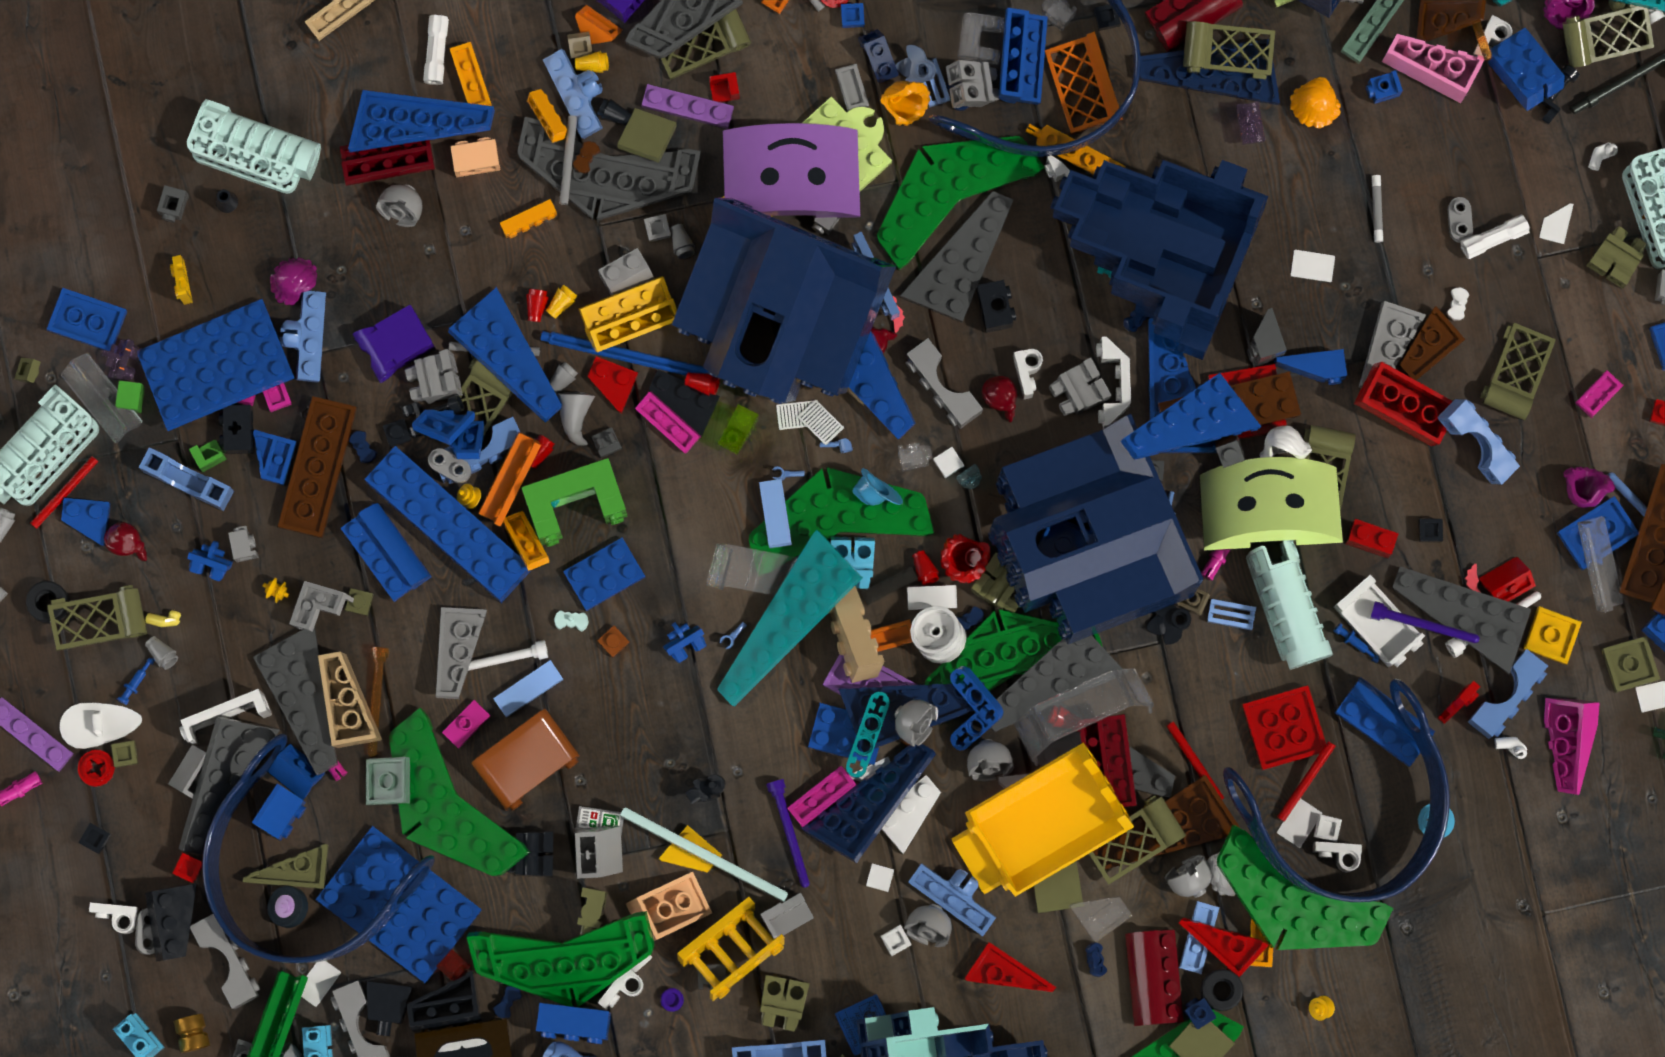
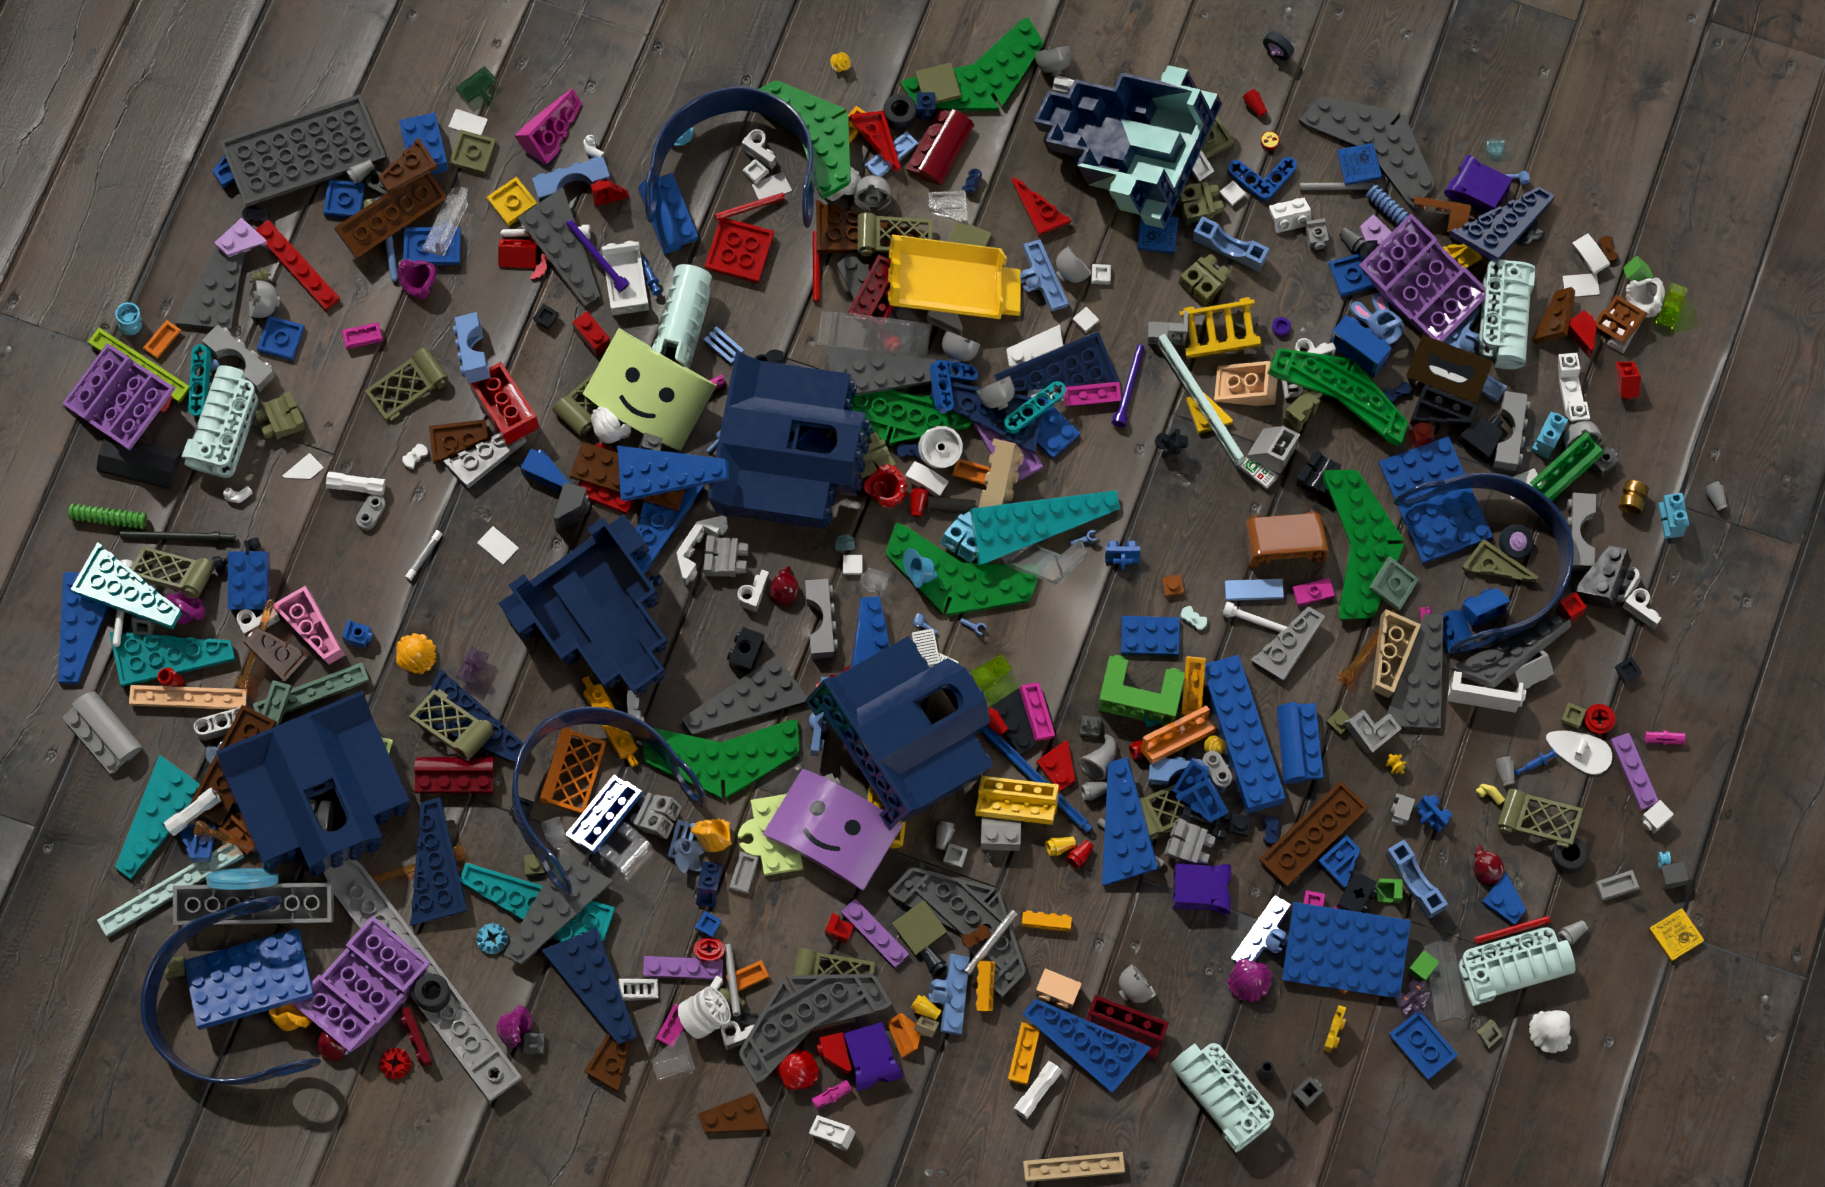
camera: 145 degrees left, 10 degrees down
(775, 513) = (1001, 600): light blue tile -> none

